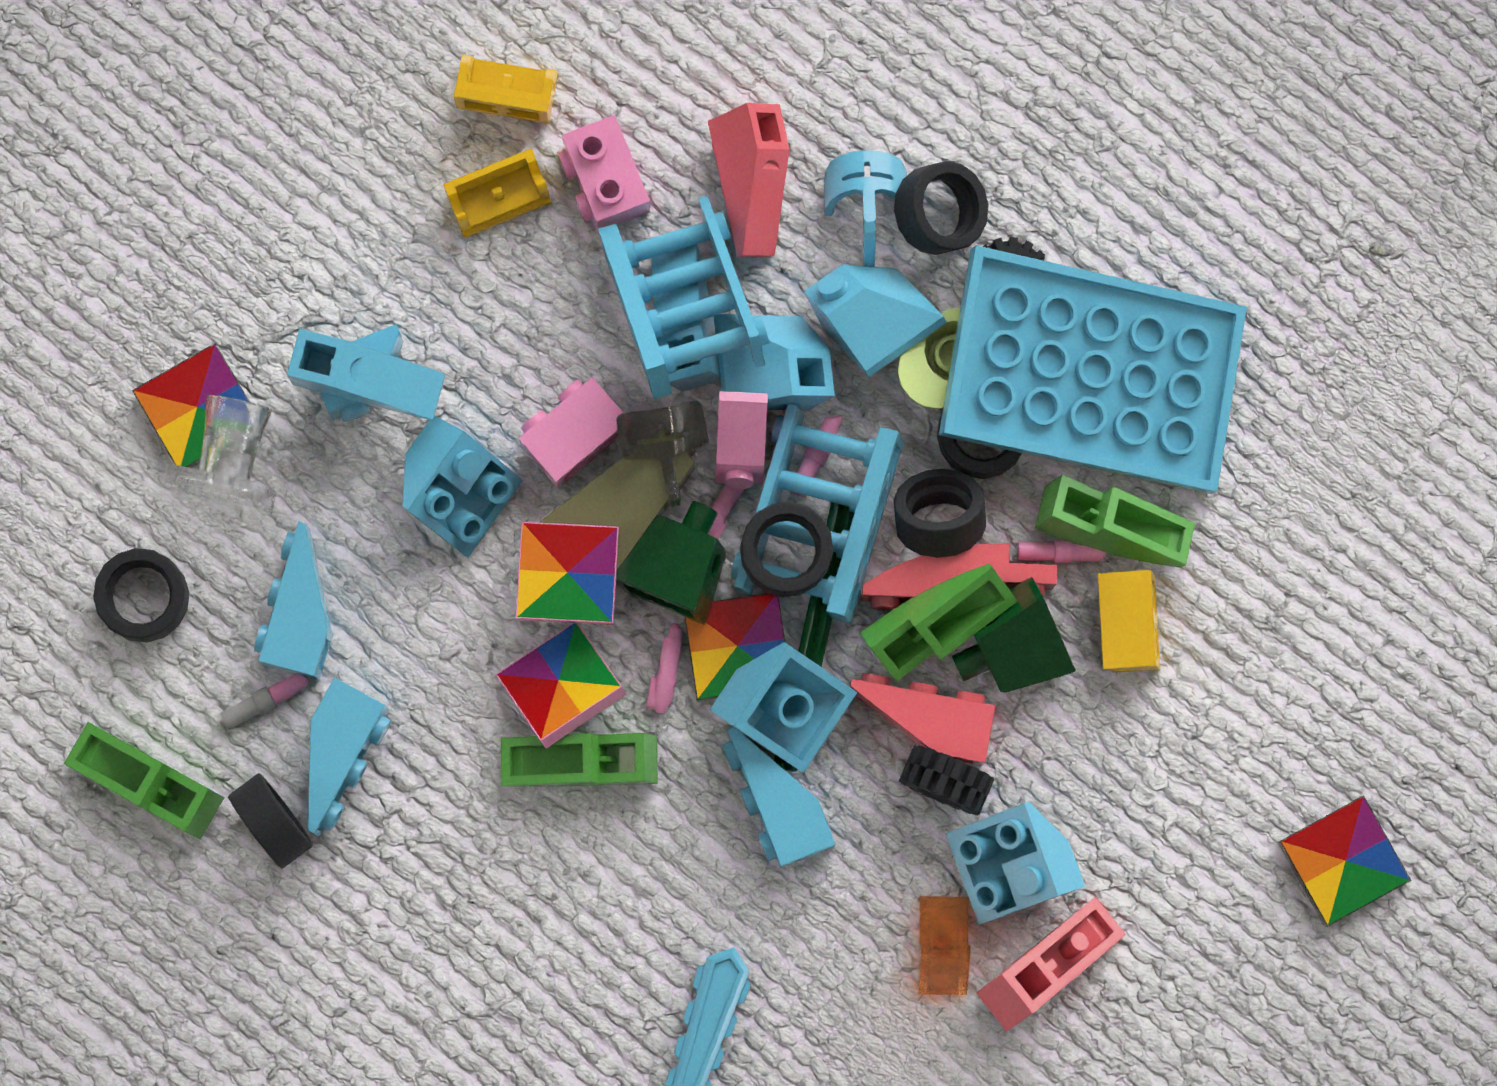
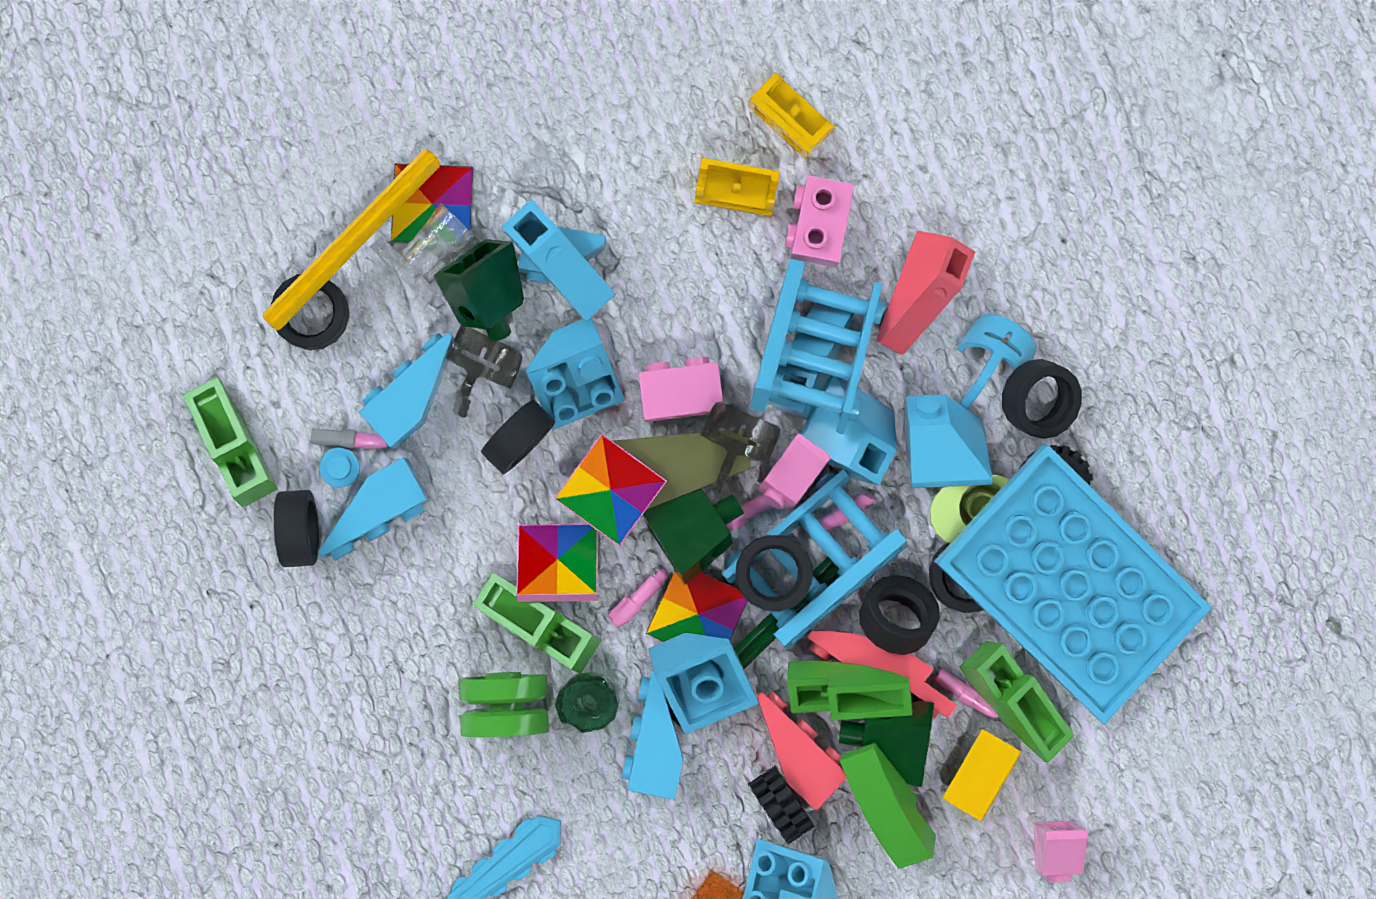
camera: 35 degrees right, 5 degrees up
(138, 492) = (351, 239): none -> yellow axle
(274, 734) = (339, 467): none -> medium azure plate
(306, 453) = (483, 287): none -> dark green torso
(364, 515) = (496, 352): none -> clear smoke helmet
(438, 582) = (518, 436): none -> black tyre
(595, 854) = (503, 700): none -> bright green wheel
(683, 805) = (587, 702): none -> clear green hair
(1054, 710) = (888, 806): none -> bright green slope
(1254, 644) = (1059, 849): none -> bright pink slope

